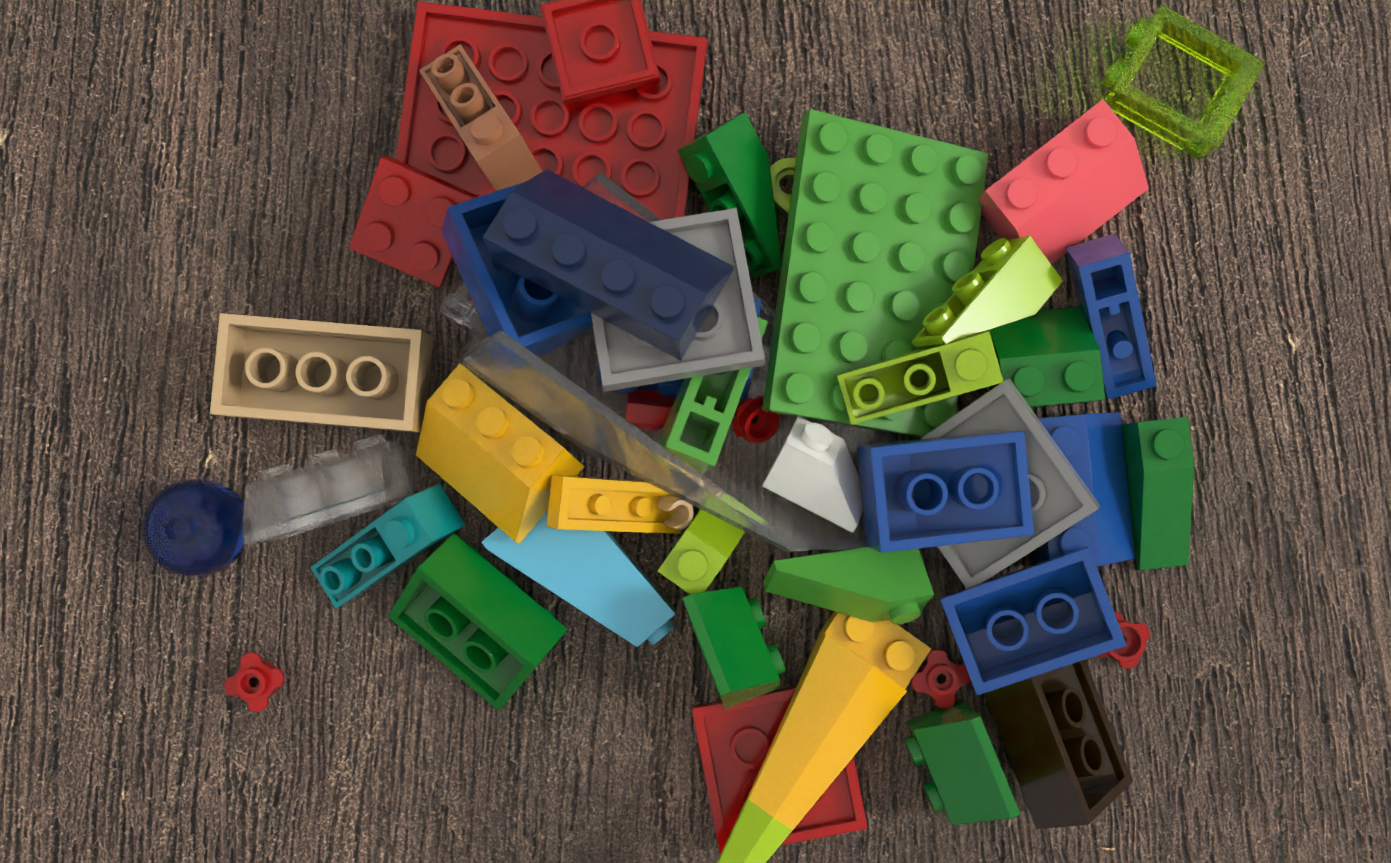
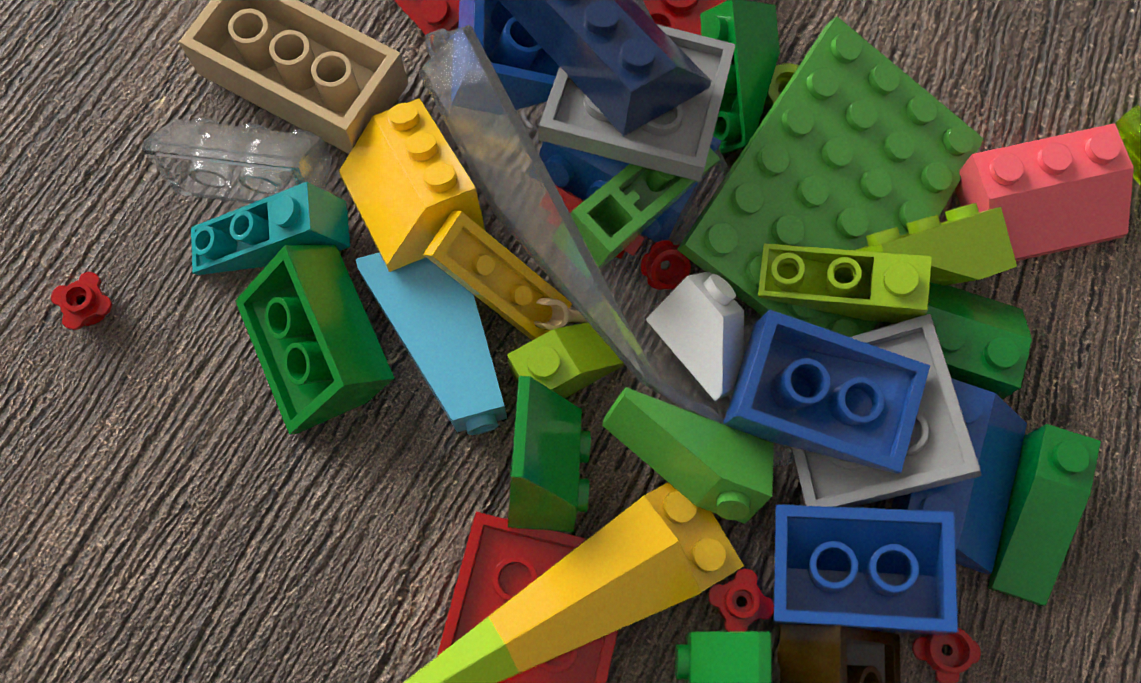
camera: 20 degrees right, 15 degrees down
(194, 527) = (104, 144): clear blue cylinder -> none
(1112, 308) = (1056, 313): blue slope -> none

